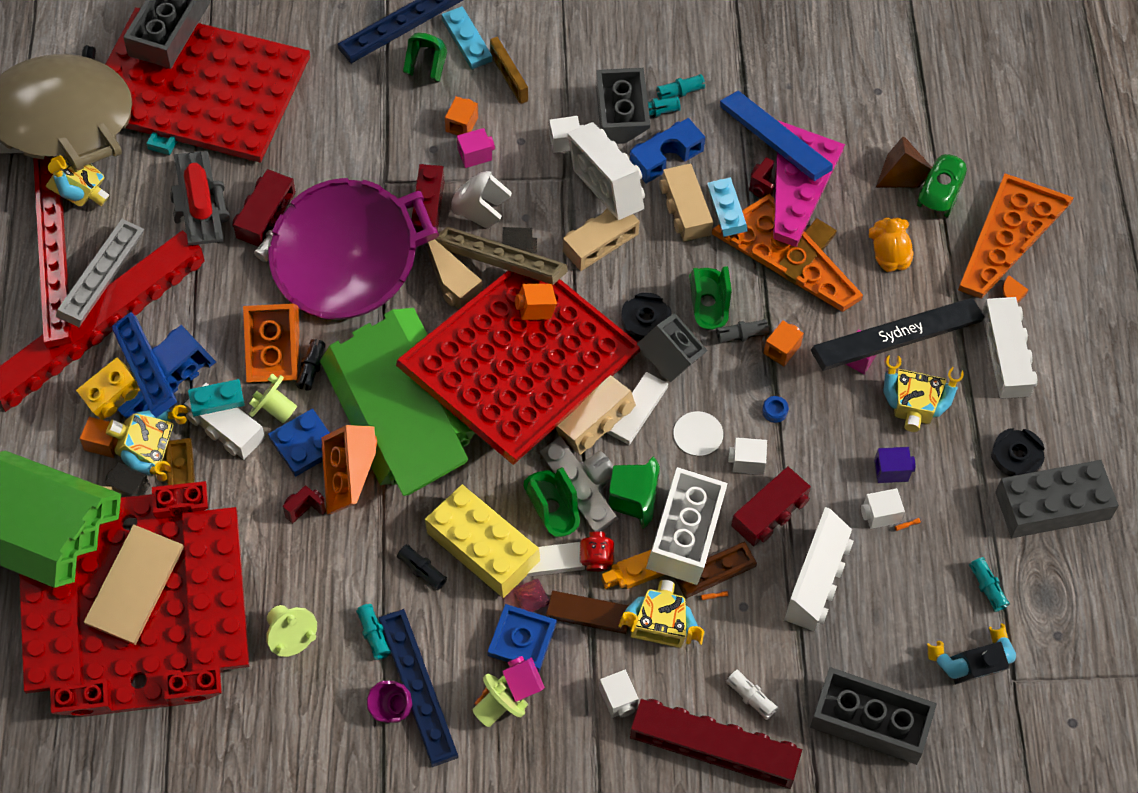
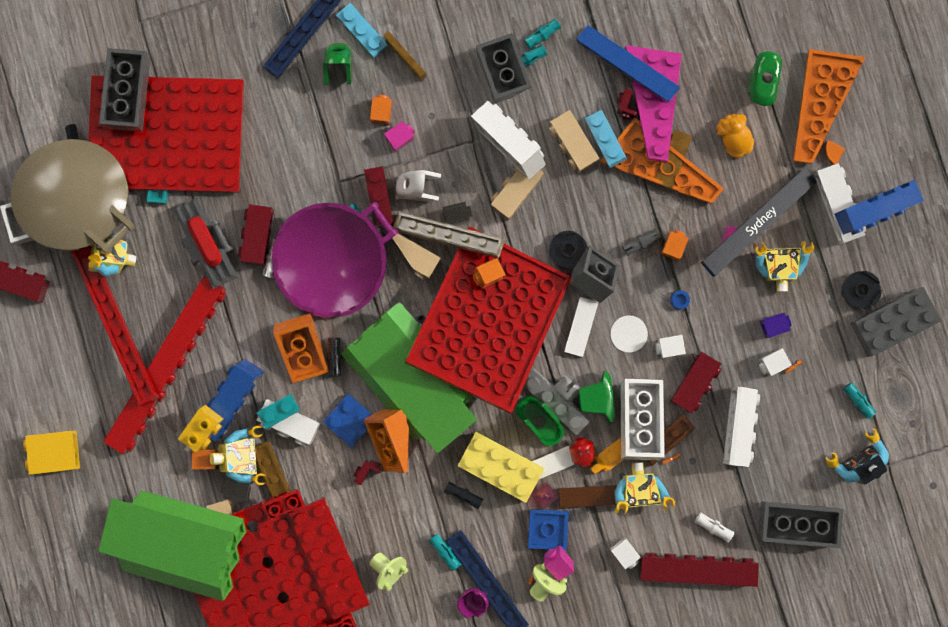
camera: 15 degrees left, 25 degrees up
(99, 273) = (157, 331): light grey plate -> none
(134, 584) = (273, 573): tan tile -> none
(144, 364) = (219, 404): blue tile -> none
(273, 401) = (317, 398): yellowish green piece -> none
(558, 132) = (466, 104): white brick -> none
(596, 415) = (556, 345): tan brick -> none
(681, 139) = (557, 84): blue arch -> none
(715, 284) = (607, 205): green piece -> none
(903, 167) = (730, 62): reddish brown slope -> none
(1058, 352) = (878, 208): none -> blue wedge

